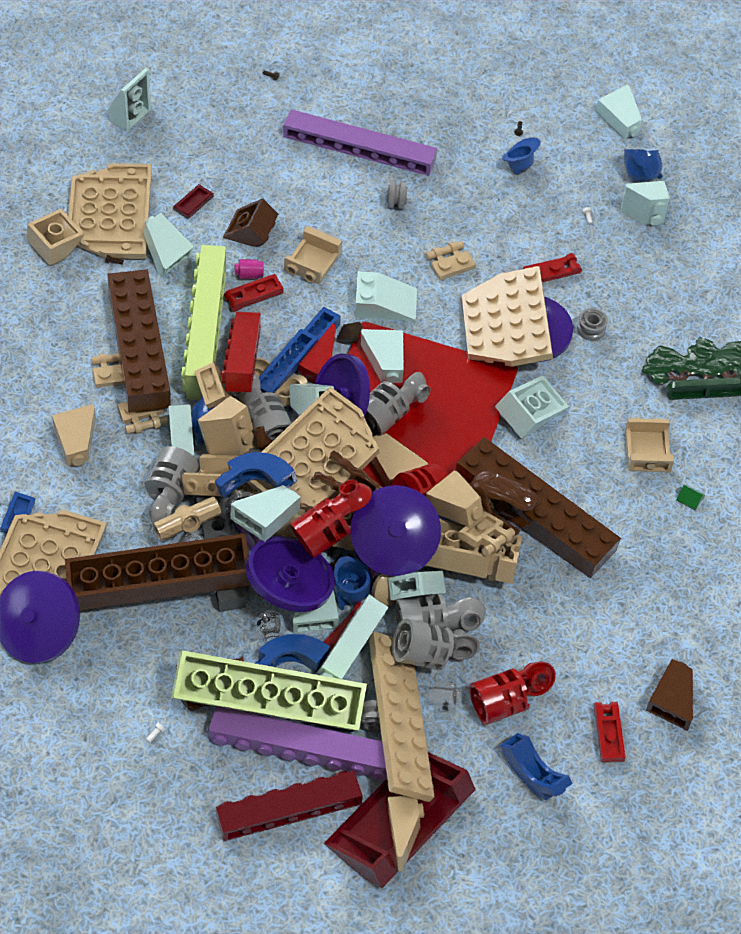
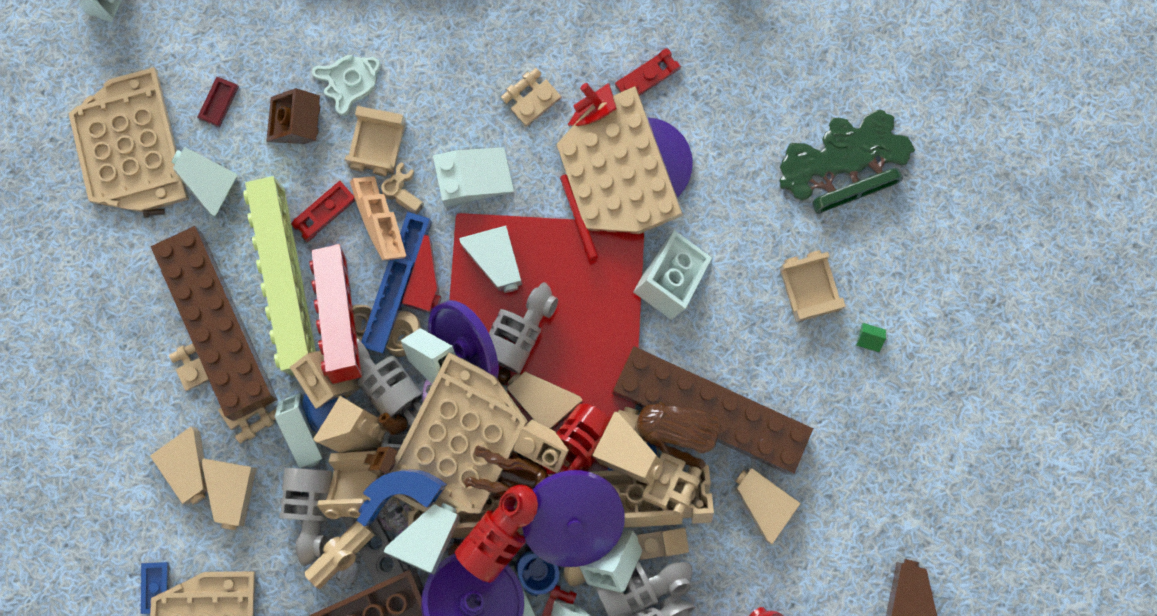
camera: 10 degrees left, 25 degrees up
(54, 236) = (74, 206): tan slope -> none
(107, 460) = (228, 491): none -> tan slope
(249, 269) = (309, 181): dark pink brick -> none
(252, 447) = (381, 461): none -> reddish brown plate
(298, 303) = (377, 218): none -> light nougat slope
(303, 213) = (348, 80): none -> light aqua tile
(317, 293) = (392, 190): none -> tan bar
(349, 333) = (446, 235): dark brown tile -> none
(384, 470) = (541, 446): none -> tan slope
(397, 194) = (446, 26): light grey wheel -> none
(456, 593) = (663, 543): none -> tan slope
(464, 349) = (584, 232): none -> red bar
(500, 267) = (595, 99): none -> red shield
(564, 589) = (765, 503): none -> tan slope
(592, 324) = (711, 151): light grey wheel -> none

